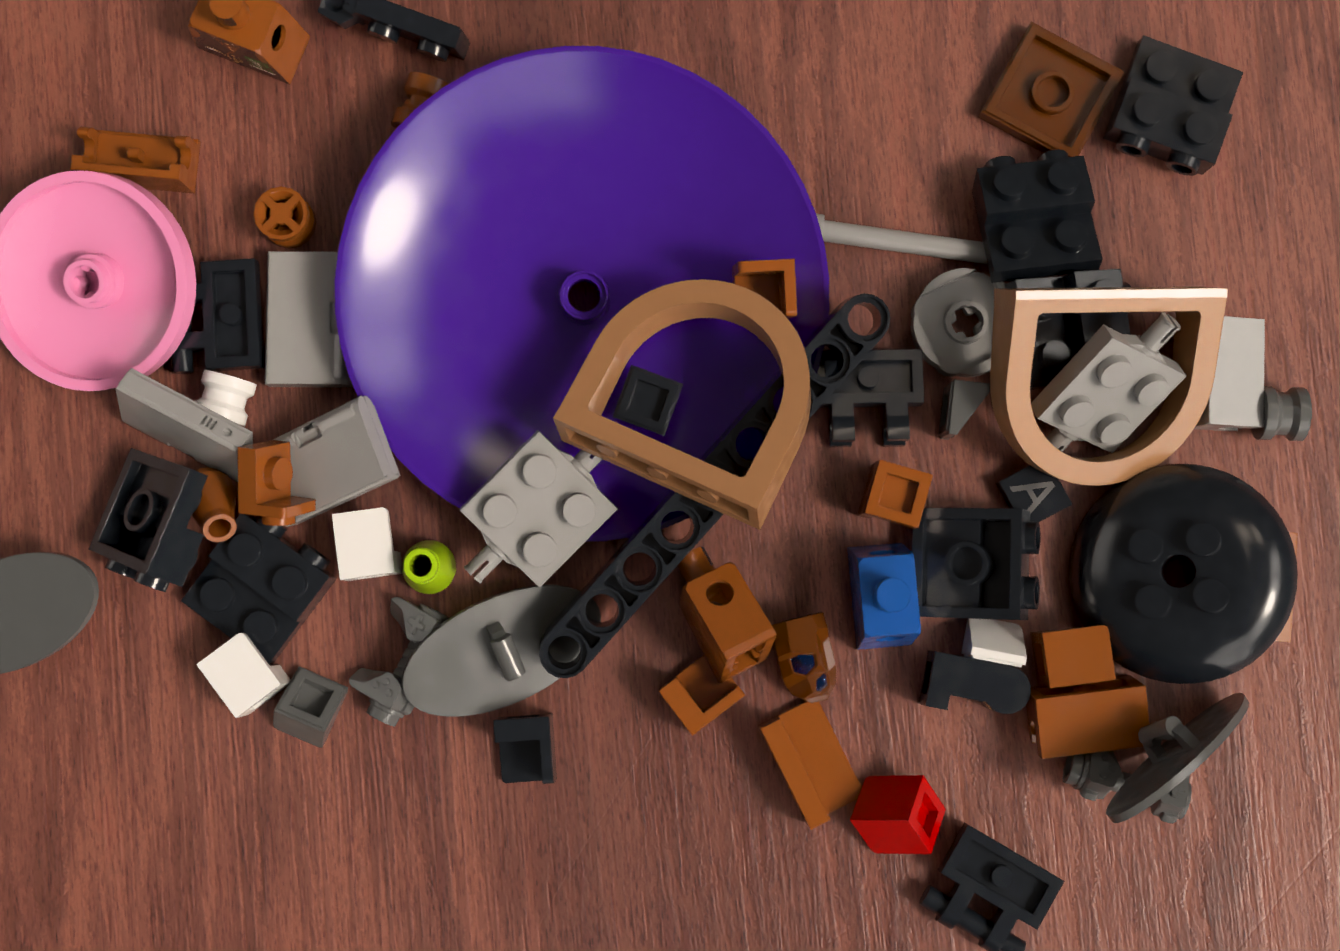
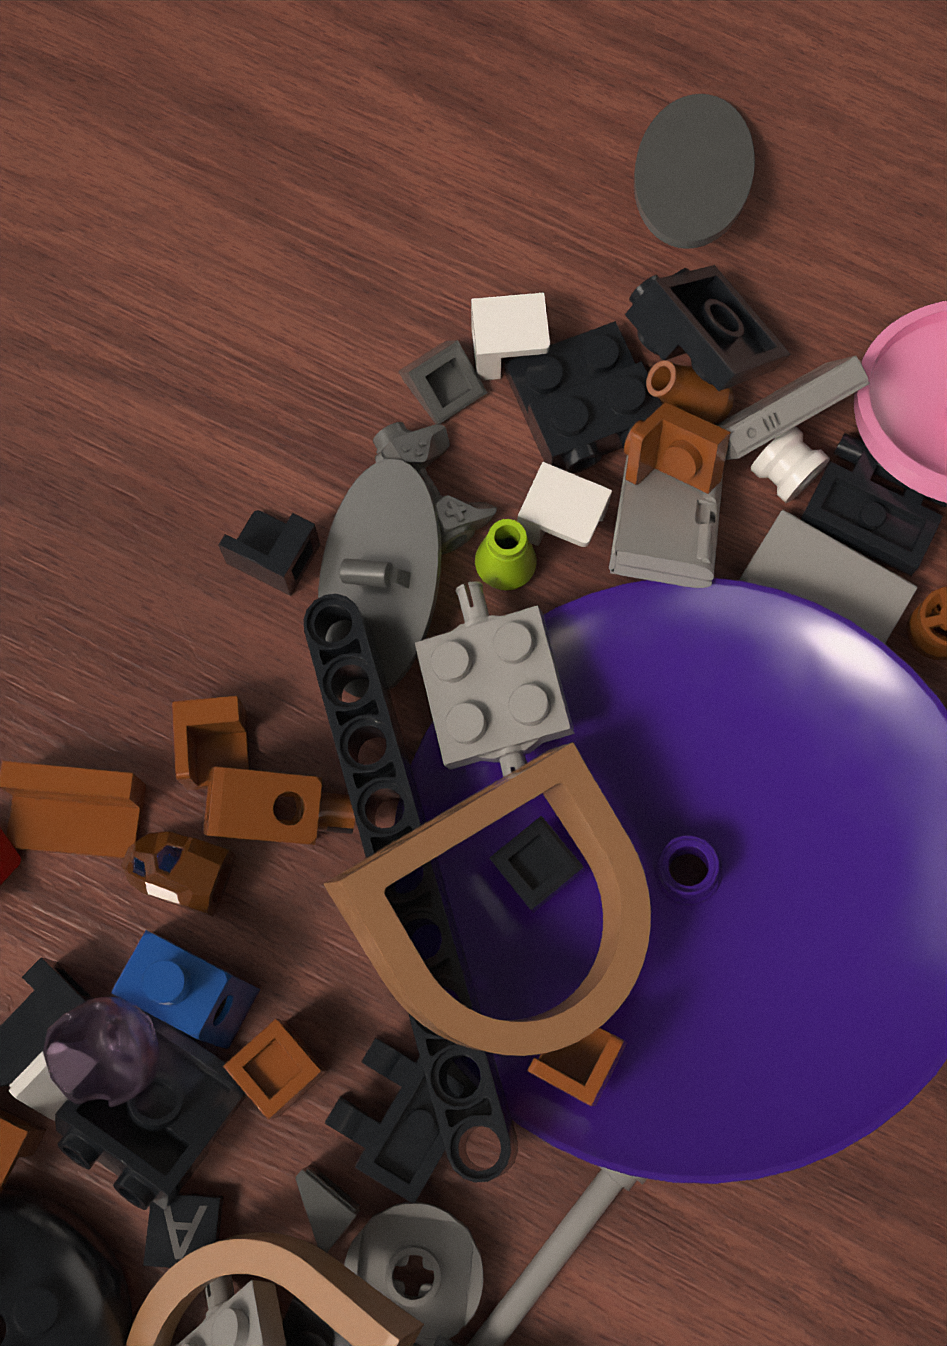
camera: 125 degrees right, 10 degrees down
(961, 612) = (102, 1051): none -> clear purple hair

